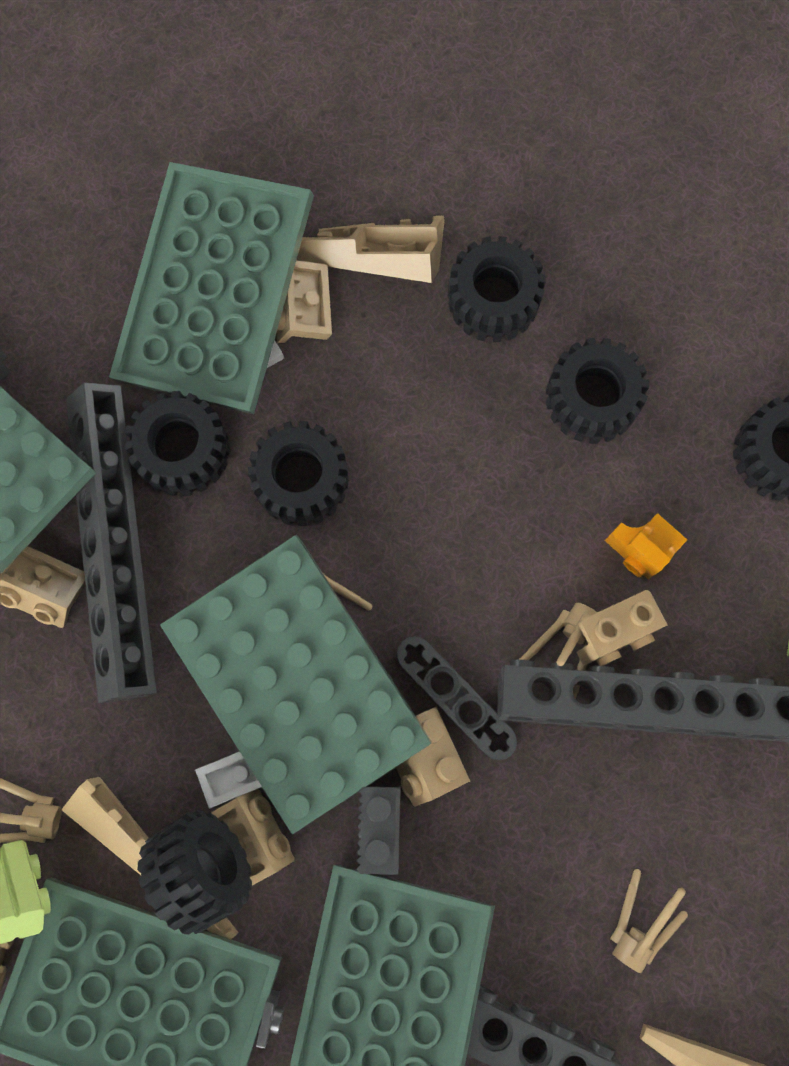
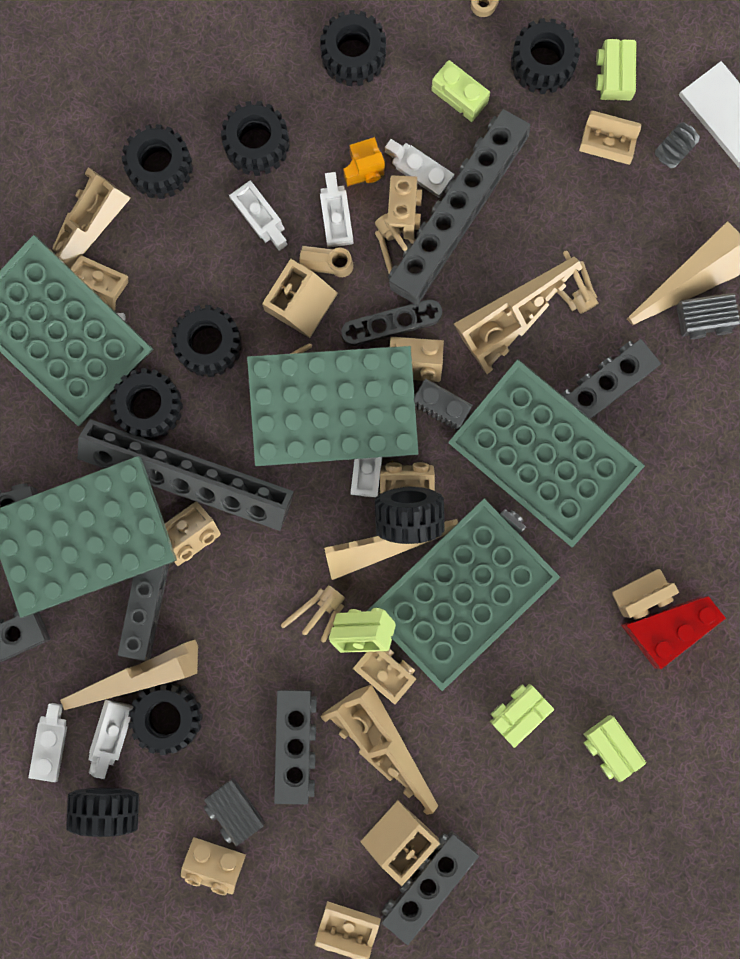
camera: 60 degrees left, 5 degrees up
(419, 560) = (299, 298): none -> tan slope
(488, 564) = (323, 260): none -> tan piece
(501, 449) = (259, 214): none -> white hinge
(531, 846) = (498, 324): none -> tan wedge
(559, 545) = (336, 213): none -> white hinge
(685, 618) = (415, 163): none -> white hinge

